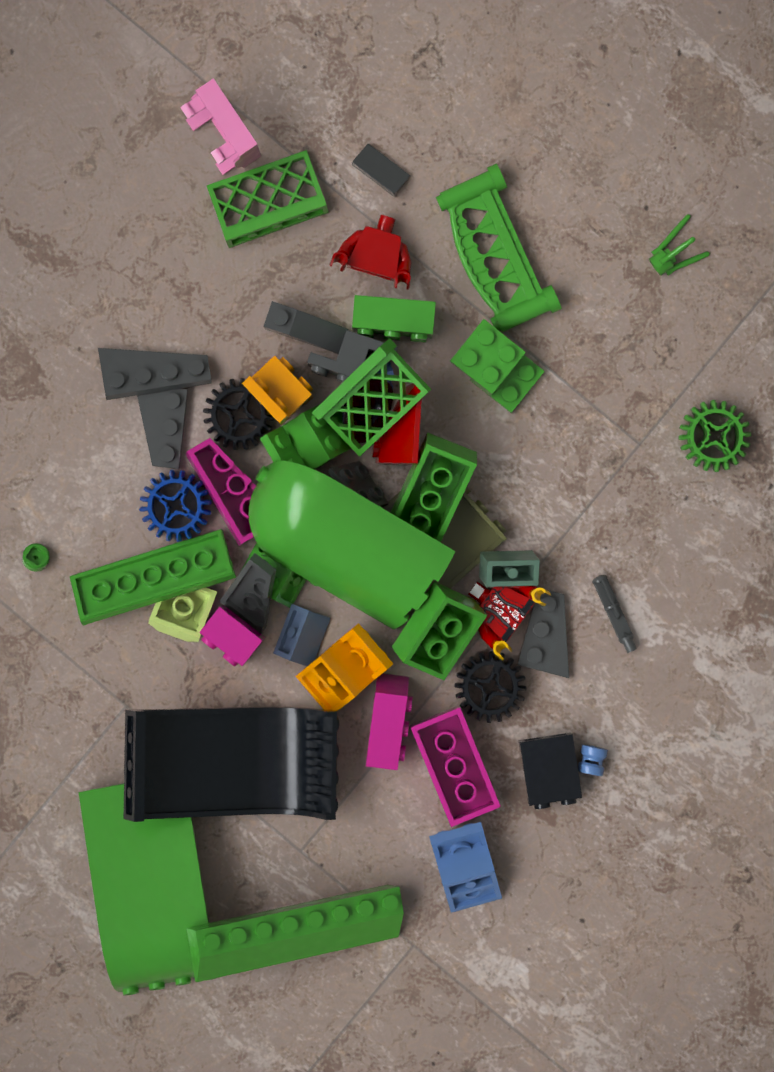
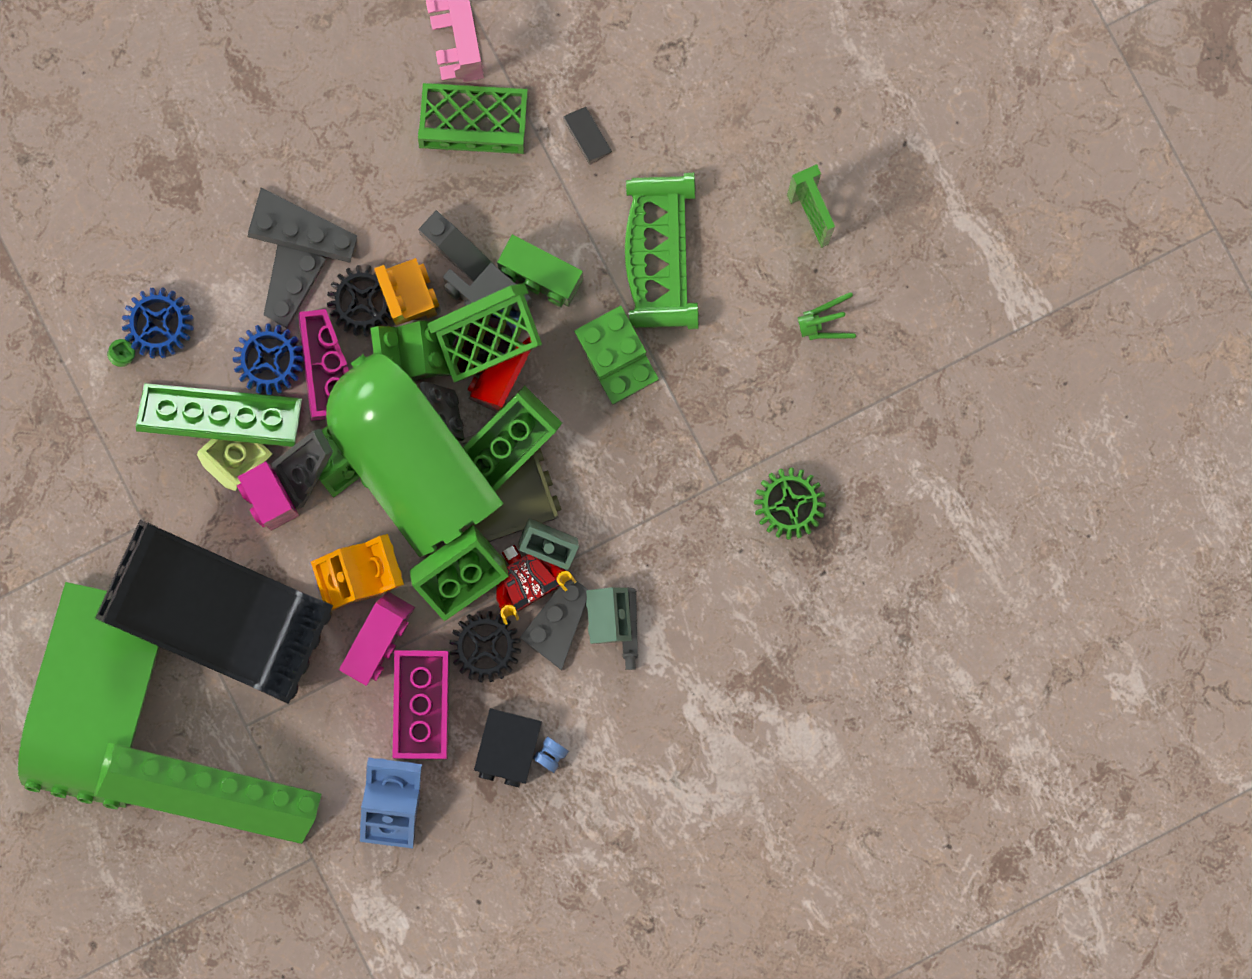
camera: 20 degrees right, 5 degrees down
(62, 504) = (166, 314): none -> blue gear
(301, 635) = (332, 526): sand blue panel -> none
(376, 253) = (550, 207): red torso -> none
(592, 610) = (608, 615): none -> sand green brick
(624, 148) = (804, 189): none -> bright green fence

